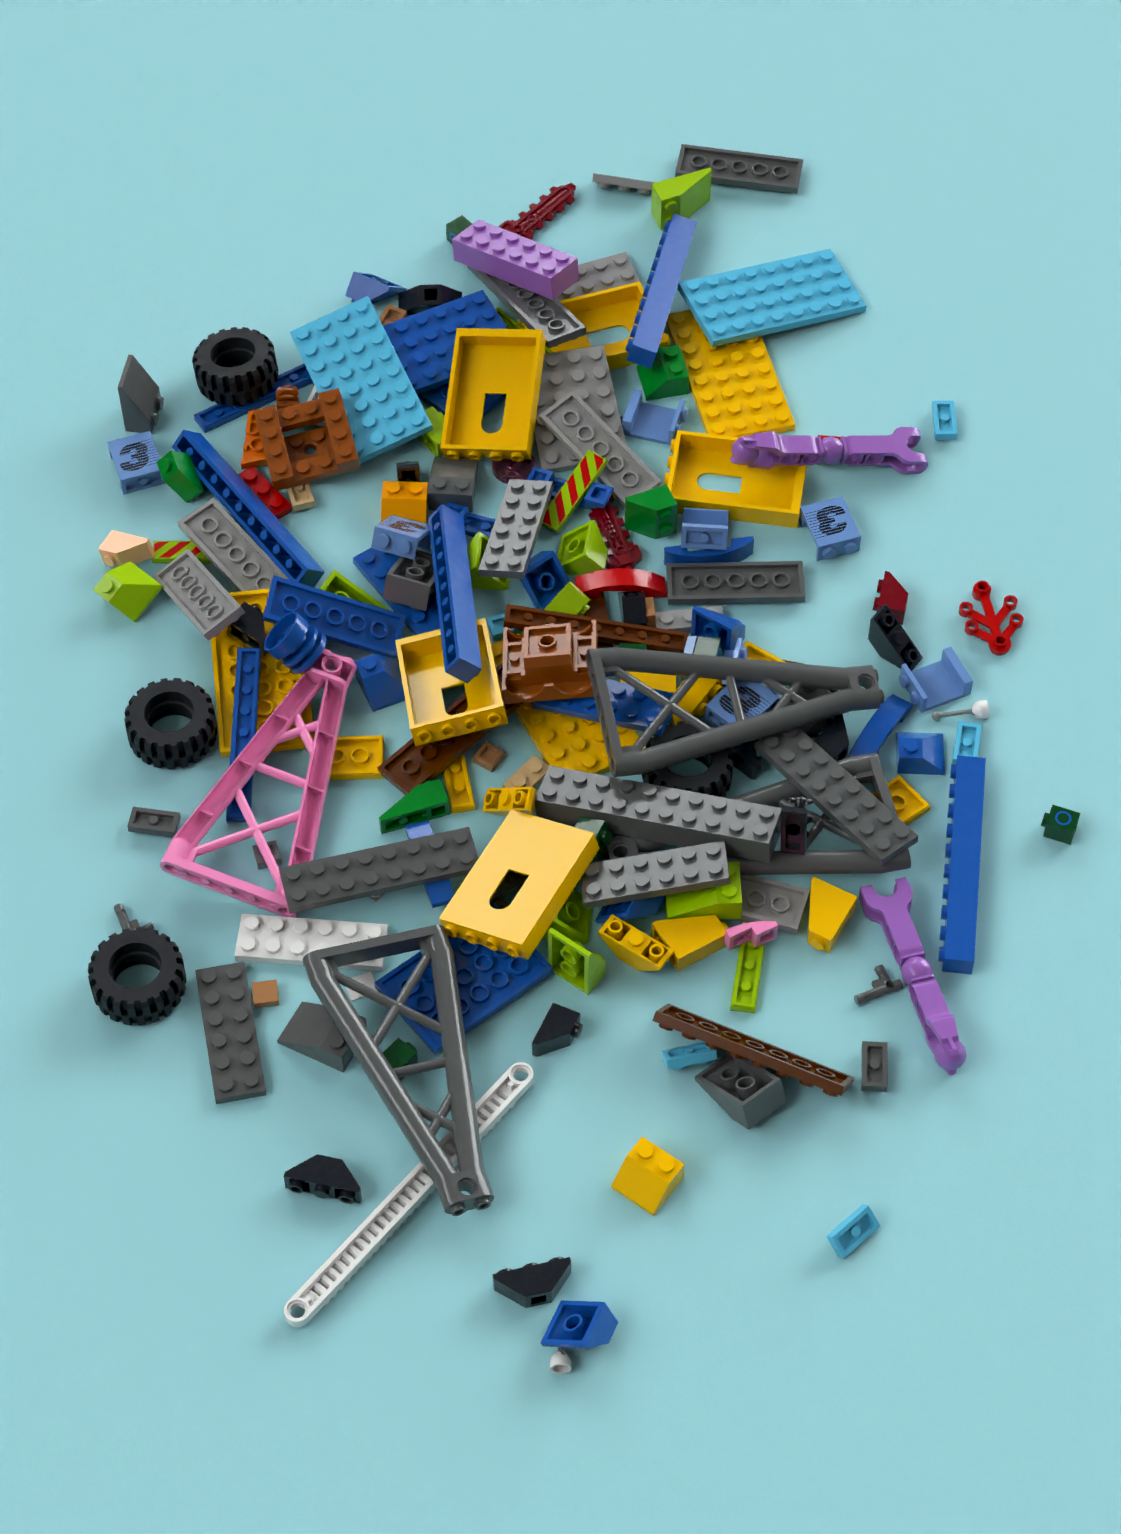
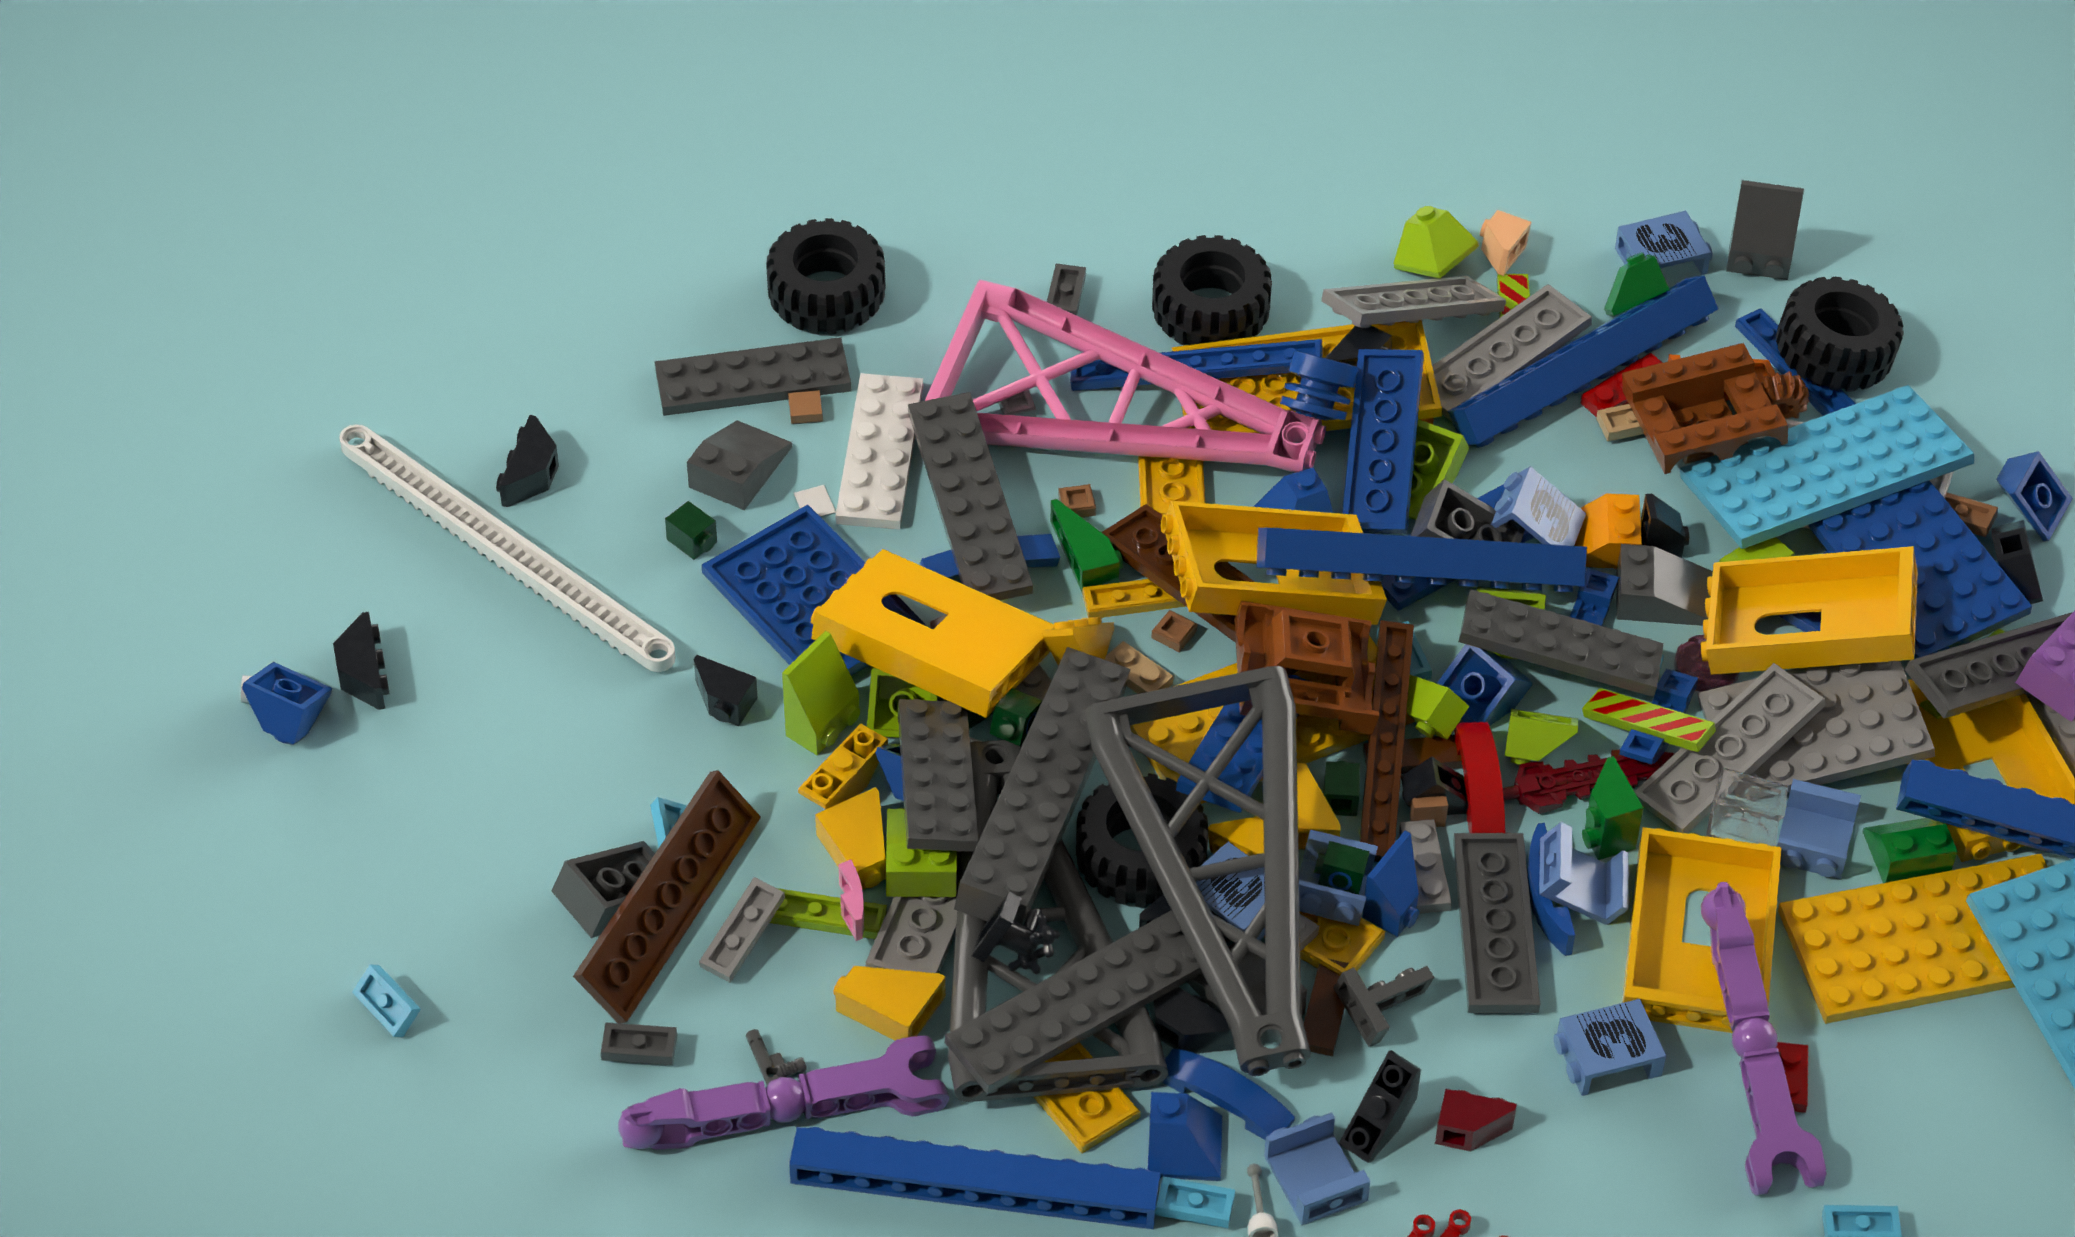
camera: 90 degrees right, 5 degrees down
(124, 920) = (912, 279): dark grey hose -> none
(365, 815) = (1078, 499): none -> medium nougat tile
(435, 947) = (612, 578): dark grey piece -> none
(648, 447) = (1746, 808): none -> clear slope
(648, 1176) = (499, 785): yellow slope -> none
(776, 1004) = (742, 929): none -> light grey plate
(807, 646) = (1366, 1004): none -> dark grey bracket

